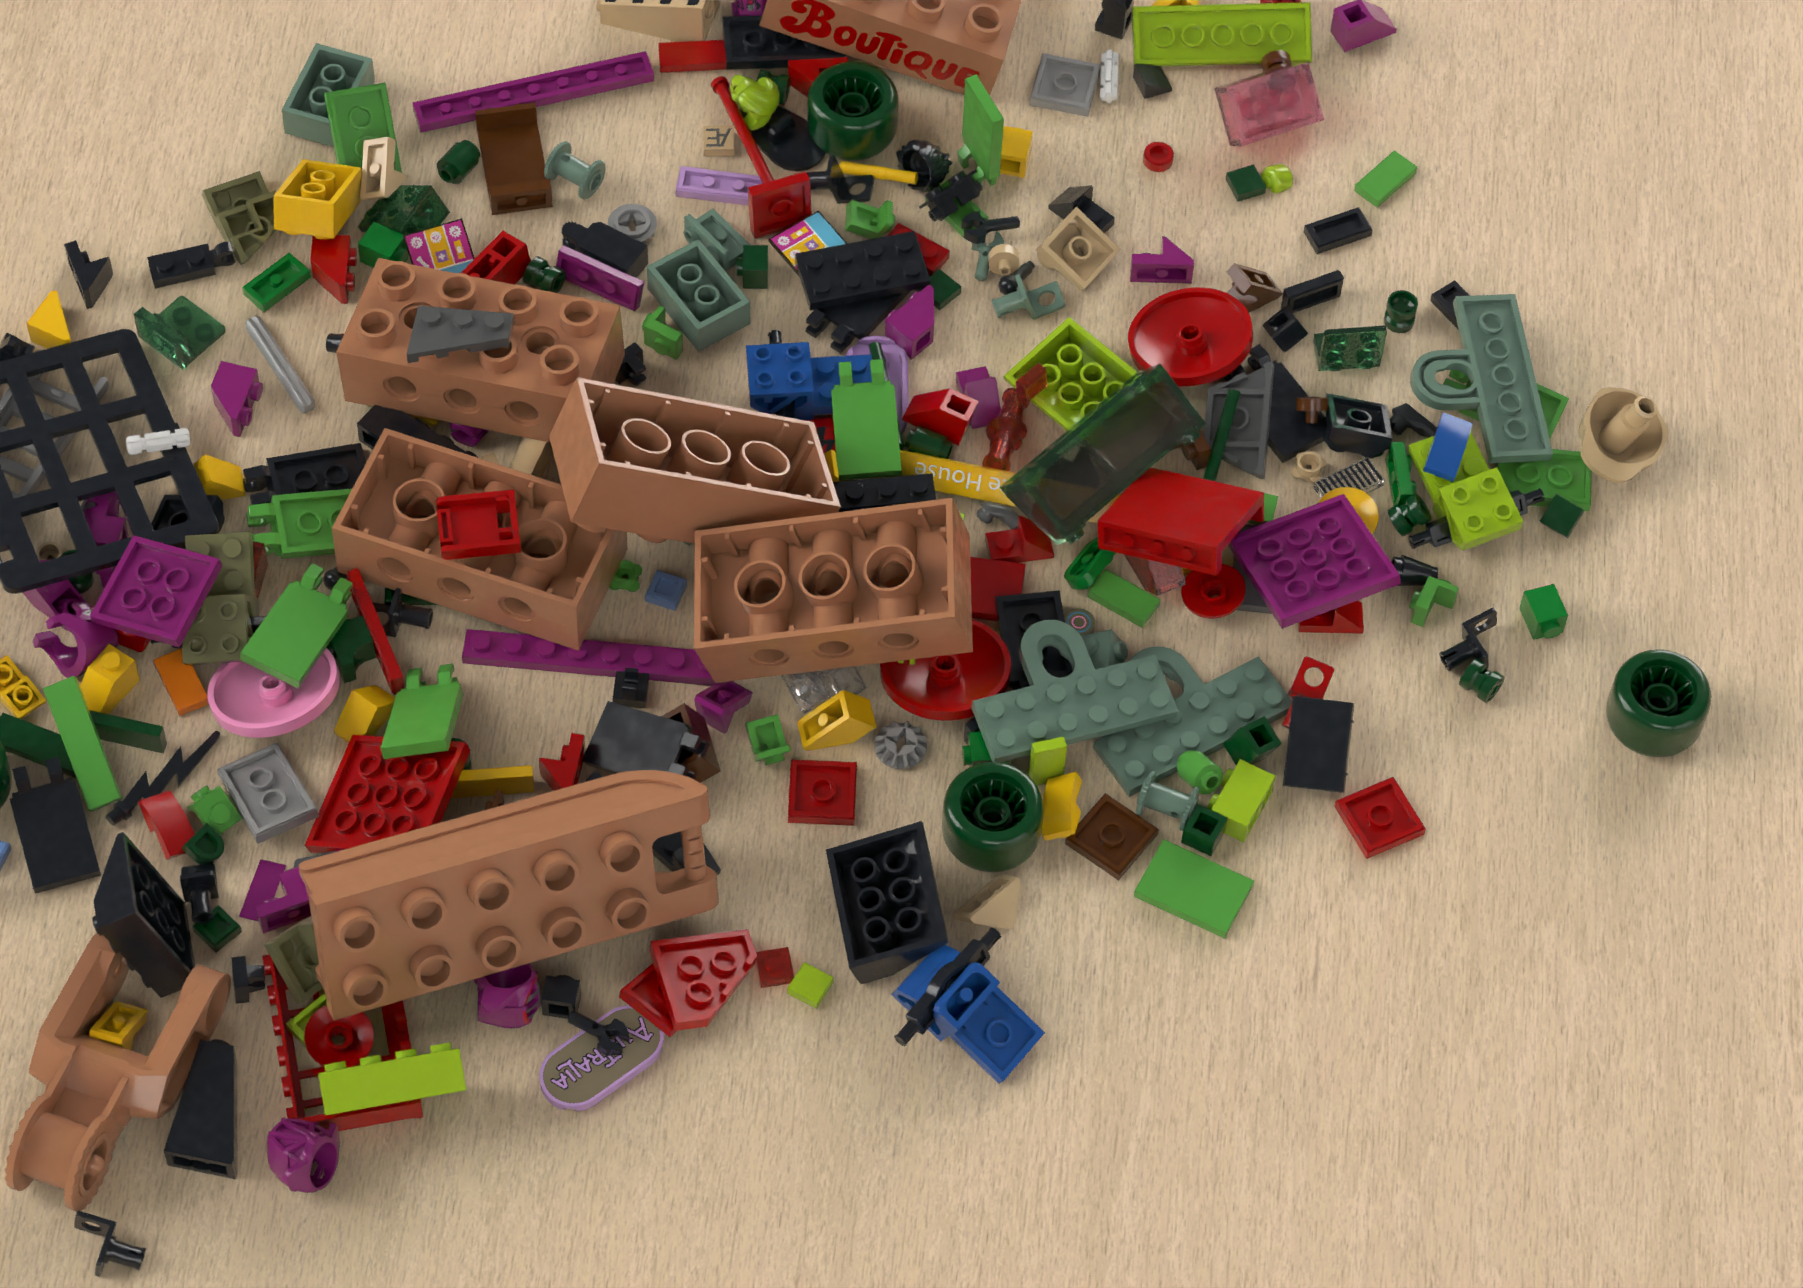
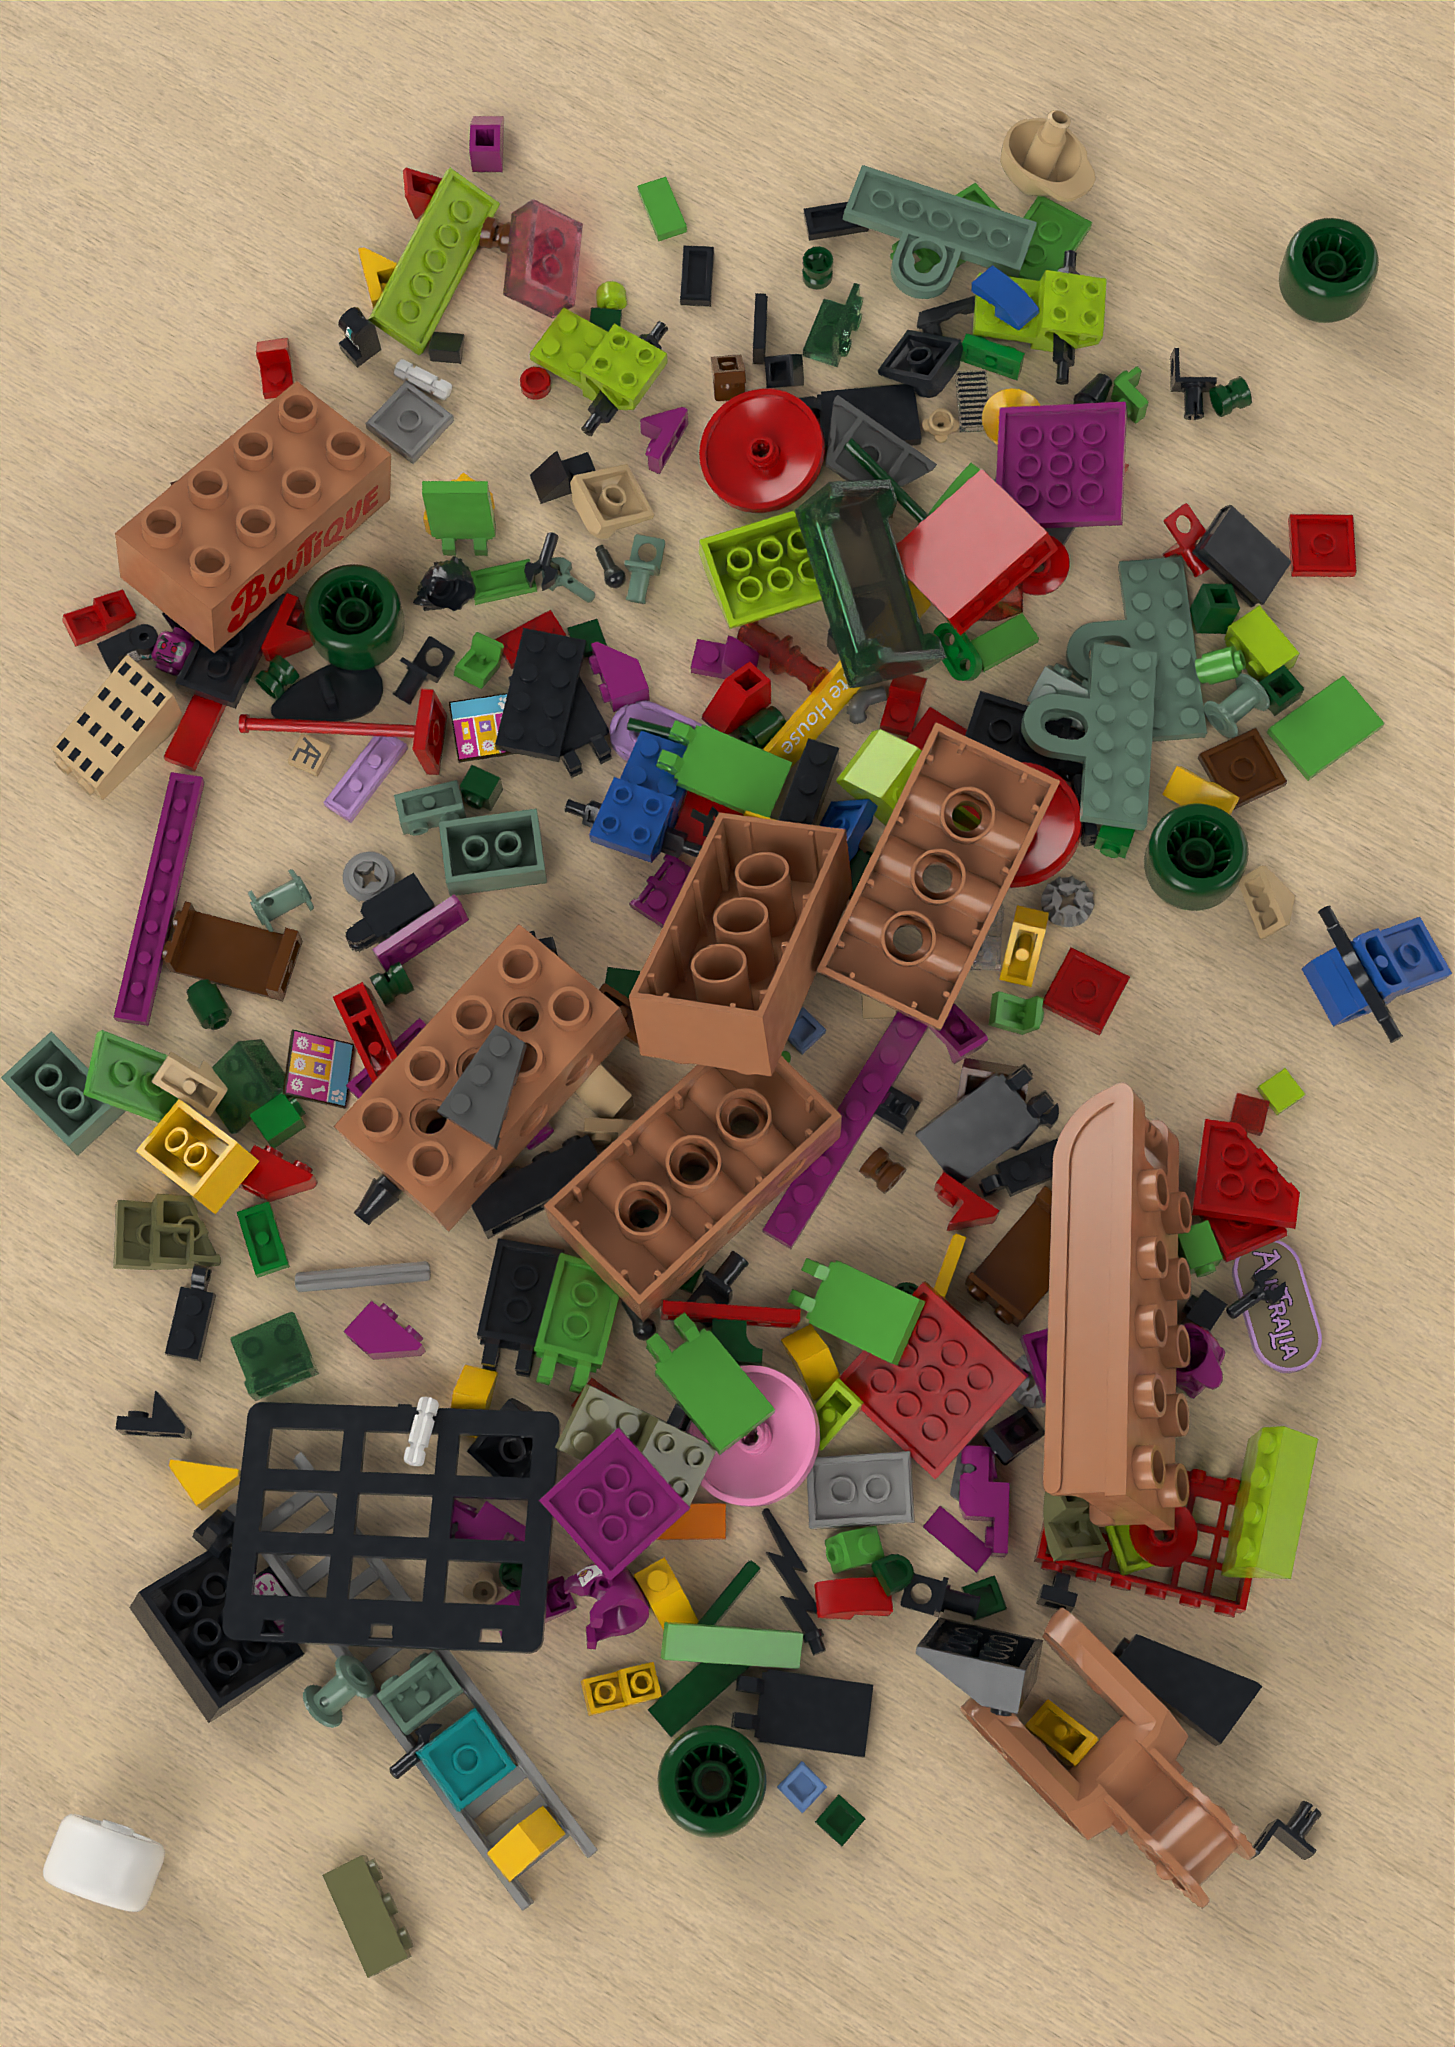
camera: 60 degrees left, 15 degrees up
(294, 1148) = (1279, 1618): magenta piece -> none
(323, 739) = (835, 1411): none -> lime slope
(471, 525) = (705, 1171): red container -> none
(566, 694) = (882, 1170): none -> reddish brown wheel
(618, 967) = (1199, 1249): none -> bright green brick
(660, 336) = (520, 908): bright green bracket -> none
(755, 98) = (292, 698): lime hair -> none
(879, 172) = (427, 629): yellow piece -> none
(887, 901) = (1248, 983): black slope -> none
(941, 201) = (489, 565): black hinge -> none
(1003, 259) = (589, 568): tan tile -> none
(1031, 383) = (761, 605): clear red tile -> none
(1047, 759) = (1158, 783): lime tile -> none
(1080, 620) = (1013, 689): olive tile -> none
(1202, 189) = (608, 366): none -> lime piece
(1311, 406) = (889, 388): reddish brown tile -> none
(1409, 514) = (1038, 367): dark green wheel -> none
(1543, 612) = (1186, 313): green brick -> none
(1562, 516) = (1093, 250): dark green tile -> none

